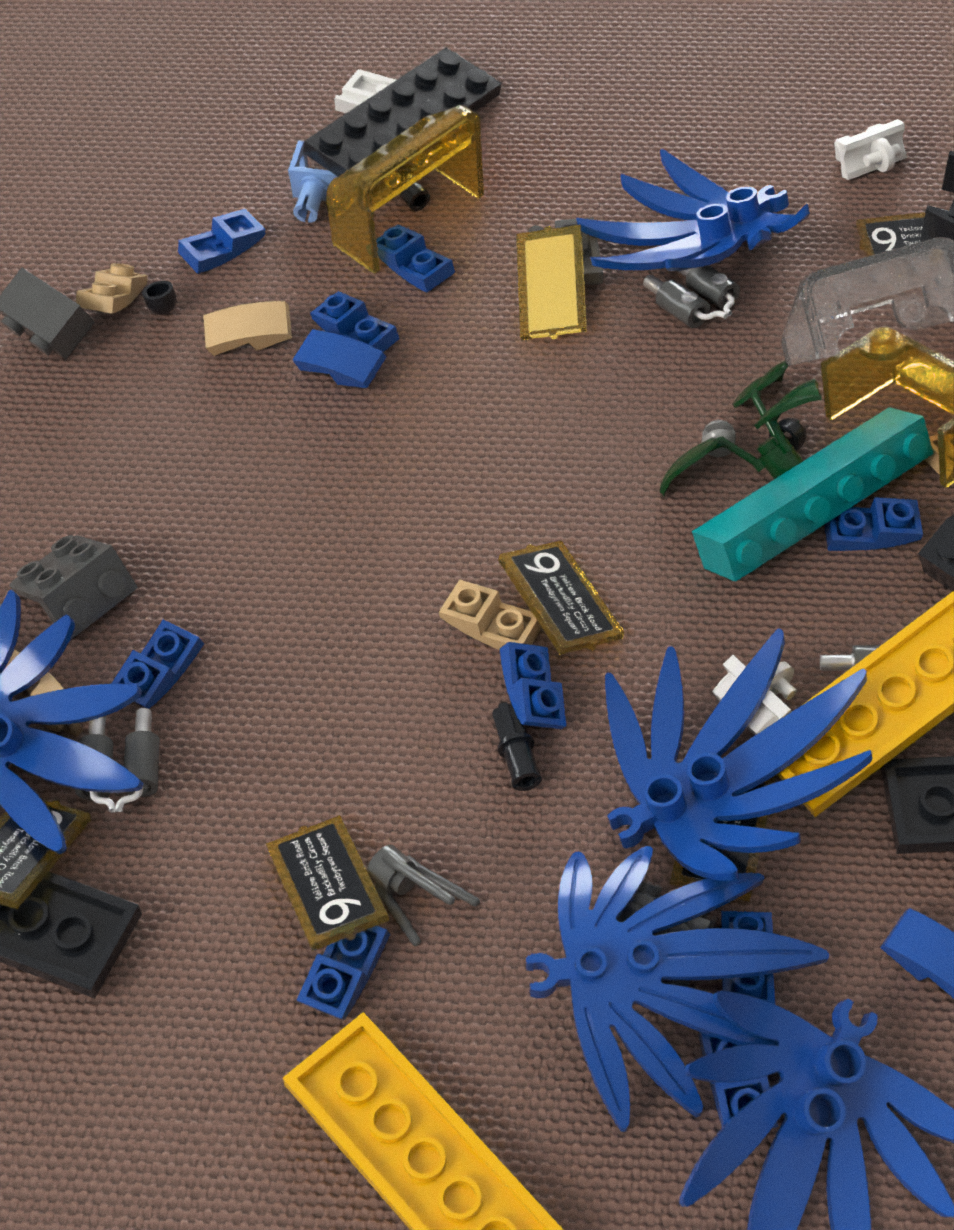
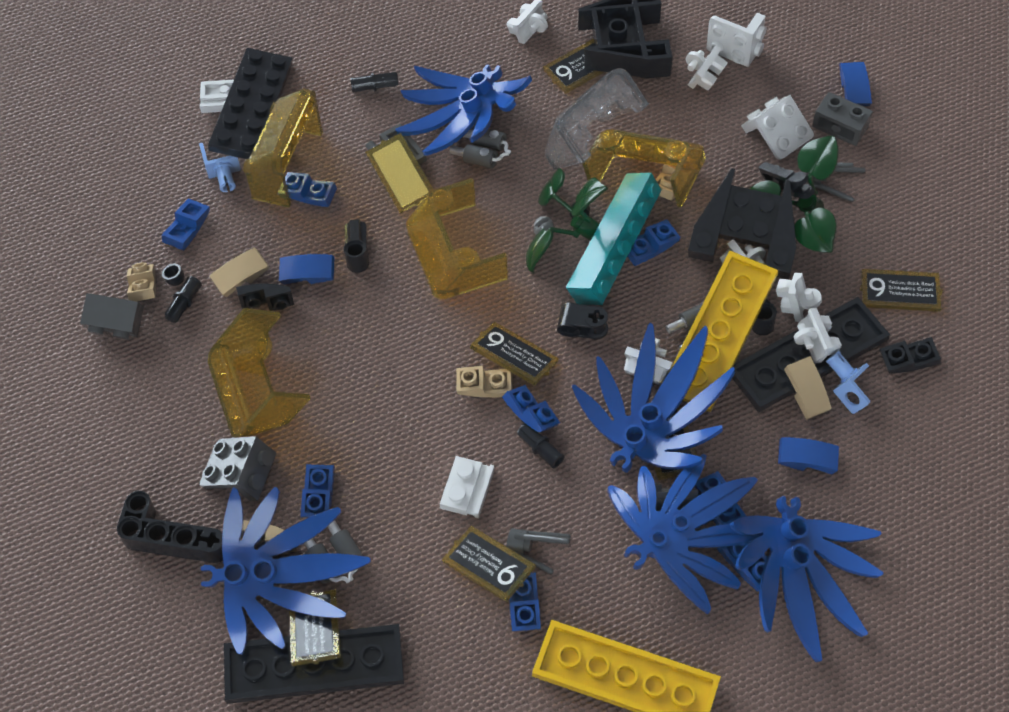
camera: 30 degrees left, 5 degrees up
(150, 333) = (182, 299): none -> black axle
(161, 462) = (243, 379): none -> clear yellow windscreen
(250, 365) = (276, 296): none -> black slope
(350, 318) = (294, 242): blue slope -> none
(370, 757) = (467, 487): none -> white plate
(425, 355) = (356, 246): none -> black piece
(546, 441) = (445, 269): none -> clear yellow windscreen
(594, 152) = (374, 81): none -> black axle
(689, 589) = (581, 321): none -> black piece

